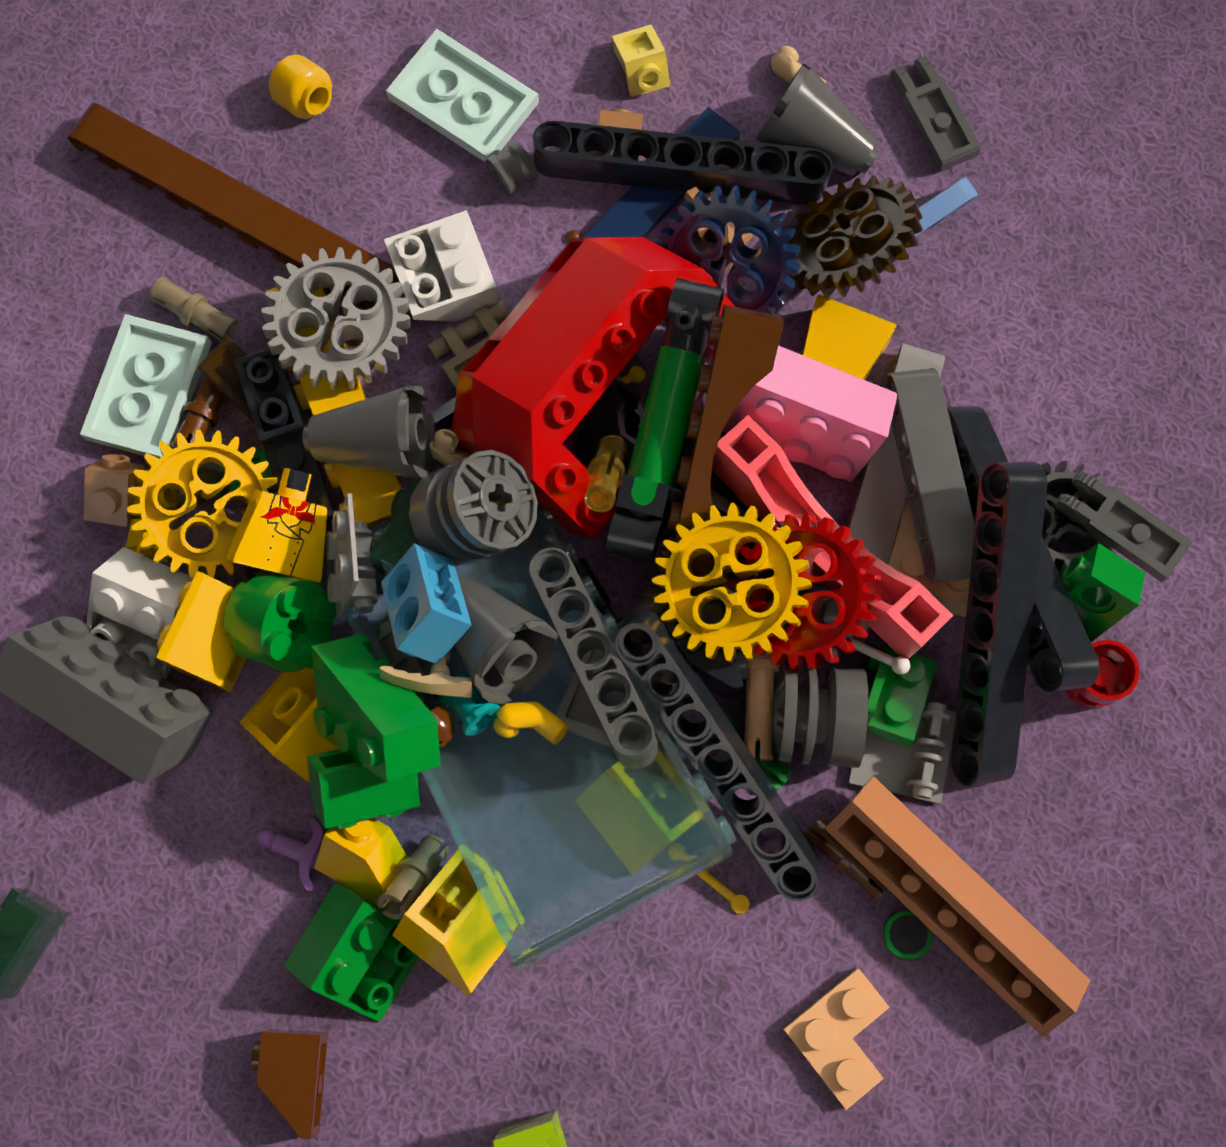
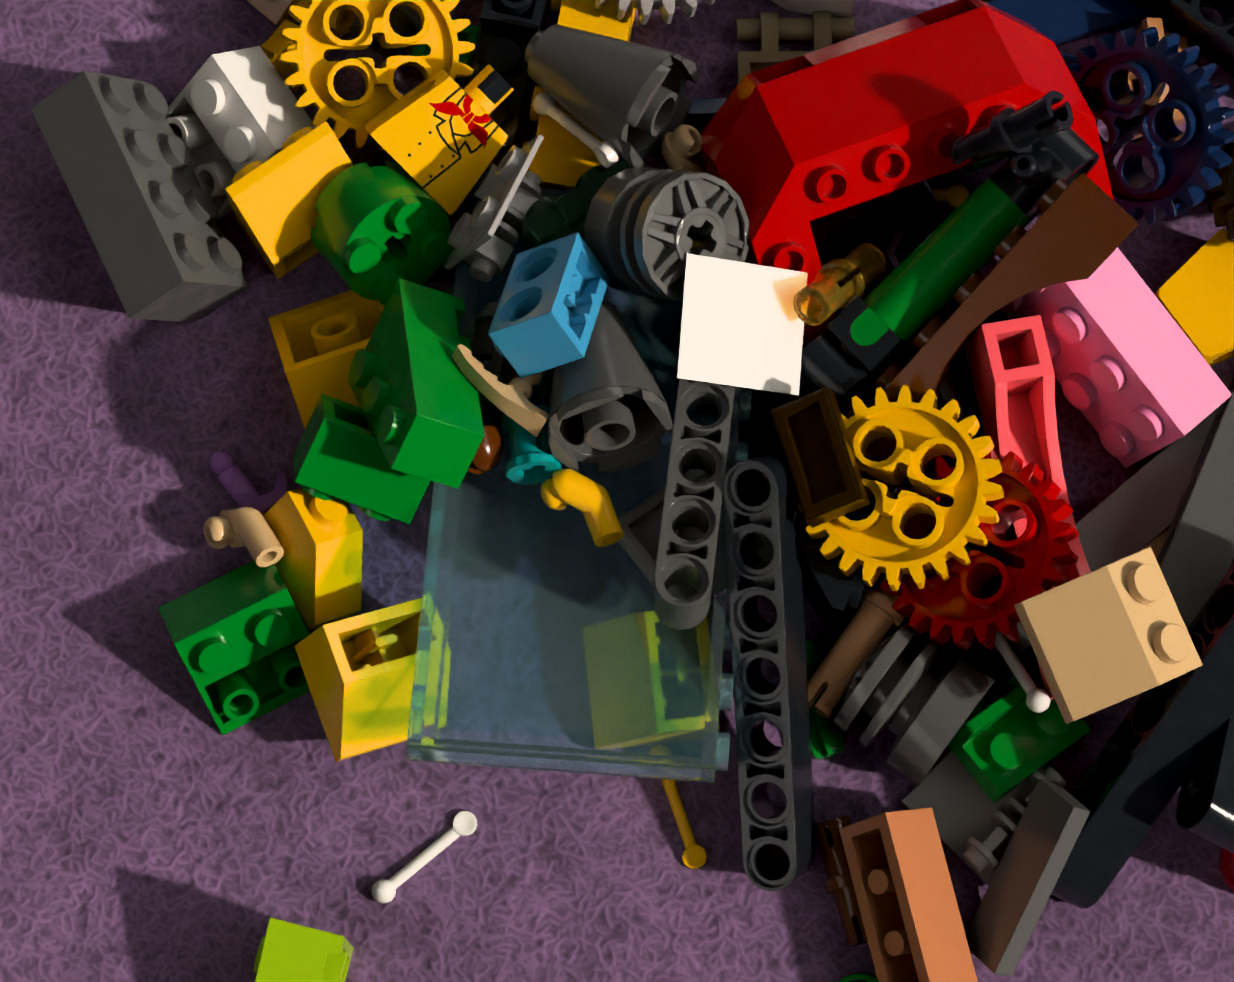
camera: 30 degrees right, 0 degrees up
(292, 1075) = (99, 729): reddish brown slope -> none
(311, 875) = (246, 529): none -> tan arm
(397, 479) = (546, 105): none -> white hinge
(412, 877) = (355, 596): dark tan pin -> none
(552, 1058) = (463, 825): none -> white hinge
(560, 539) = (741, 325): none -> white sticker
(662, 305) = (1012, 132): none -> black pin
(668, 595) = (819, 457): none -> dark brown tile
(931, 596) = (1108, 635): none -> tan slope
(964, 784) = (1026, 877): none -> dark grey tile

